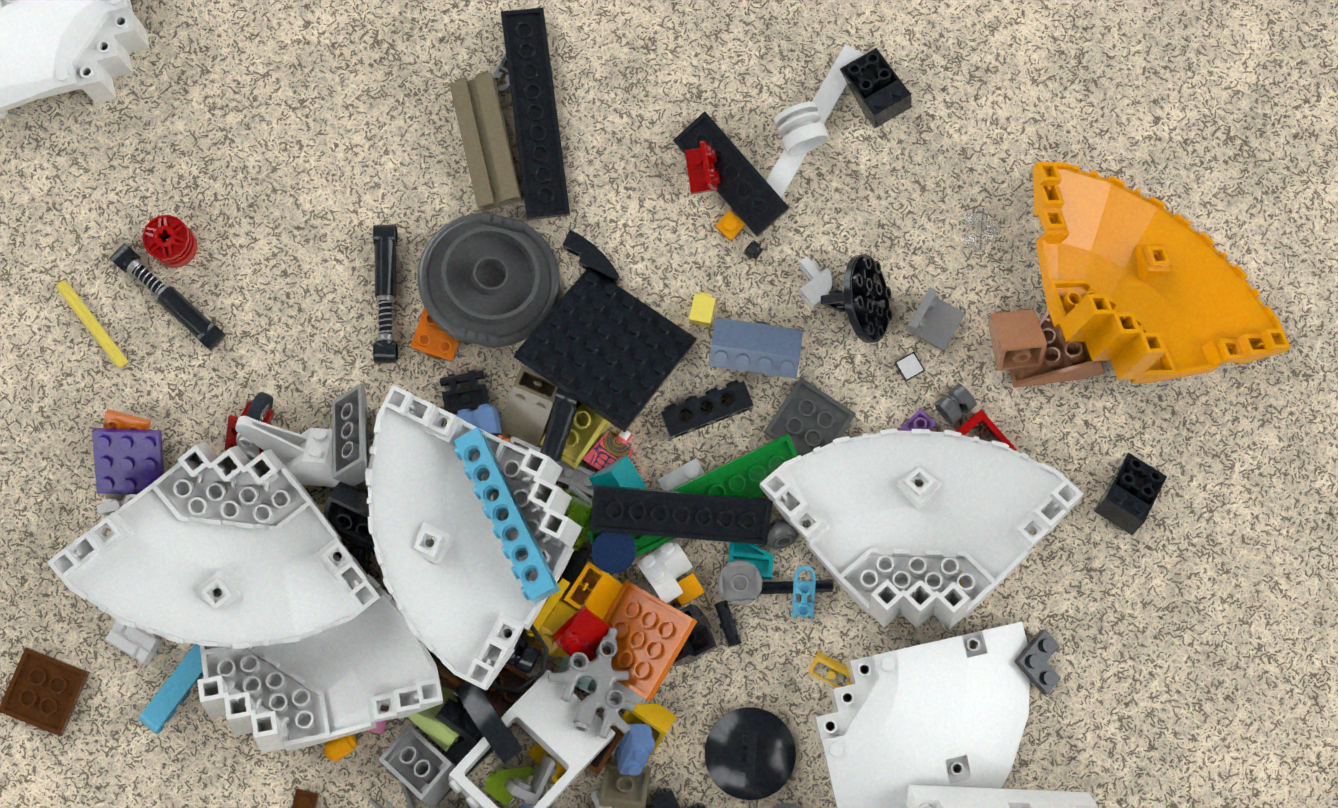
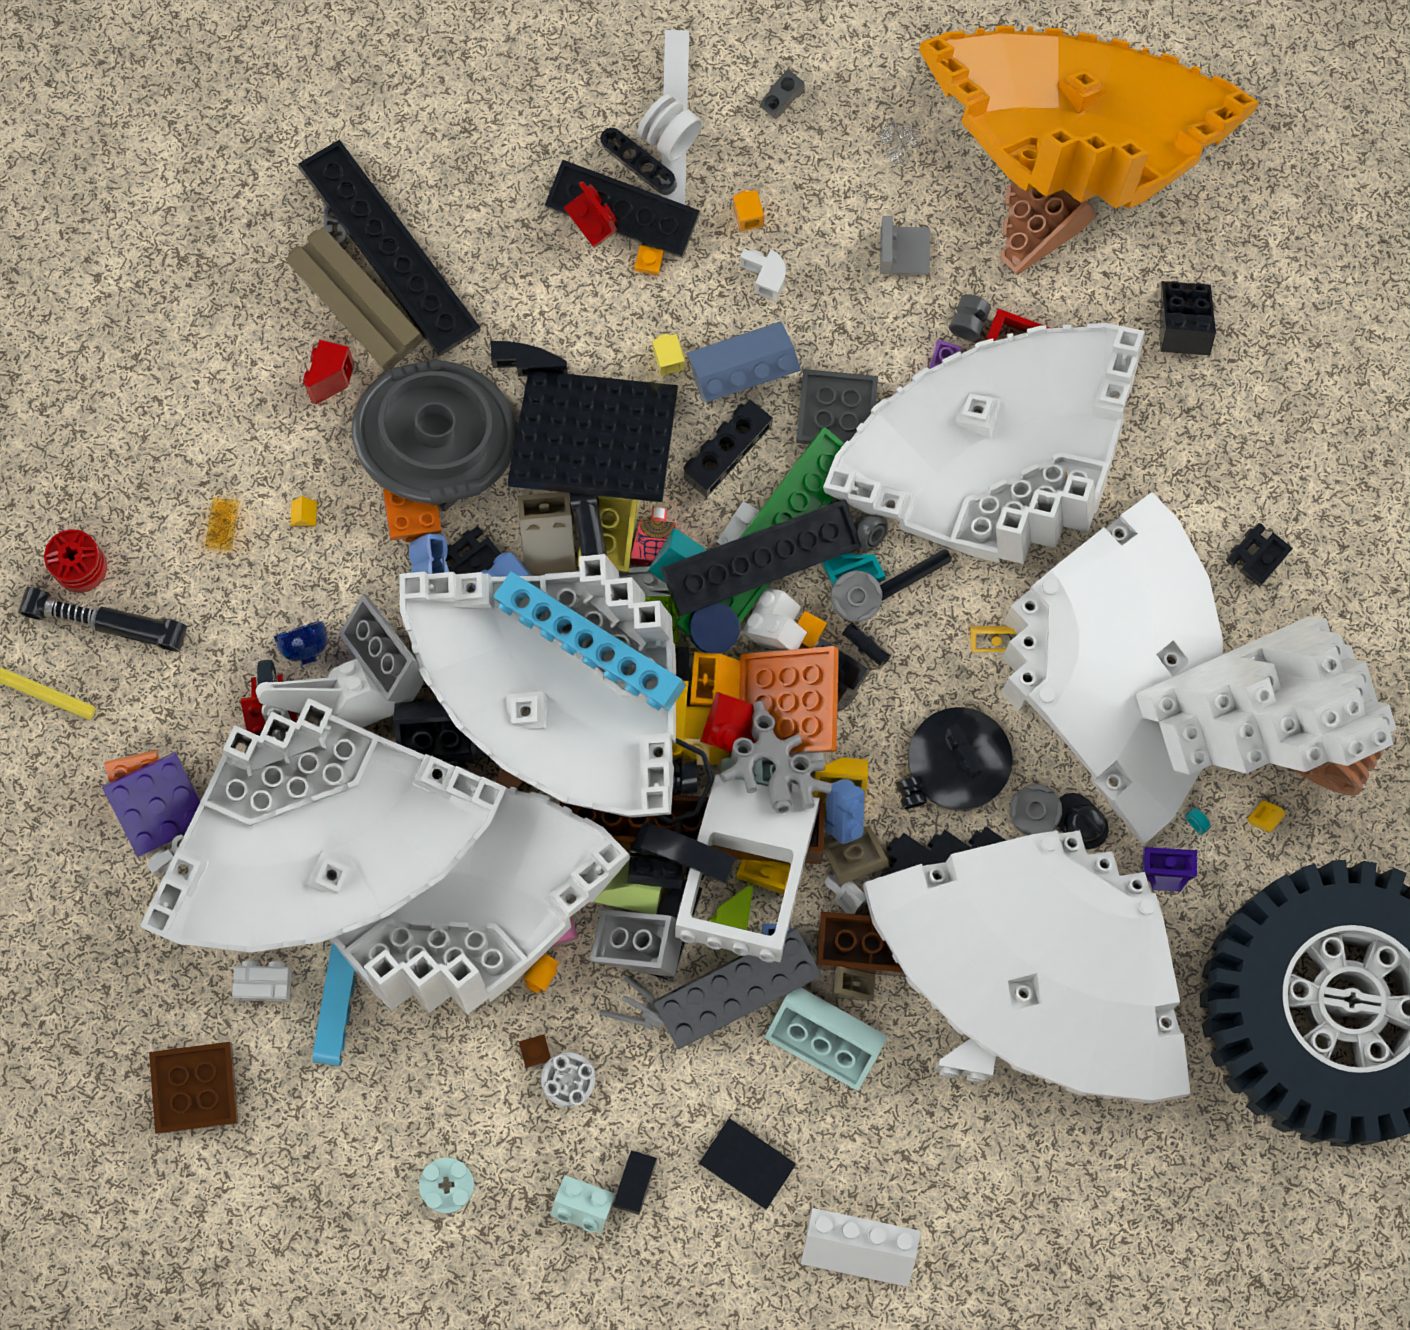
camera: 35 degrees left, 5 degrees down
(295, 267) = (222, 524): none -> clear yellow plate
(302, 393) = (302, 642): none -> clear blue cylinder
(360, 290) = (303, 512): none -> yellow slope
(385, 242) = (332, 499): black piece -> none
(429, 379) = (428, 554): none -> medium blue brick
(434, 190) = (329, 371): none -> red slope
(536, 789) = (768, 895): light grey bracket -> none
(699, 755) = (911, 792): none -> black wheel
(753, 250) = (686, 271): black plate -> none
(767, 140) = (638, 161): none -> black beam
(804, 588) = (923, 568): medium azure piece -> none
(829, 225) = (748, 210): none -> light orange brick
(863, 298) = (823, 259): black bracket -> none
(876, 88) = (721, 55): black slope -> none
(908, 144) = (782, 94): none -> dark grey leg
(909, 367) = (904, 306): white tile -> none
(1017, 339) = (995, 224): nougat slope -> none
(1034, 661) = (1186, 523): plate -> none
(1081, 725) = (1265, 560): none -> black plate

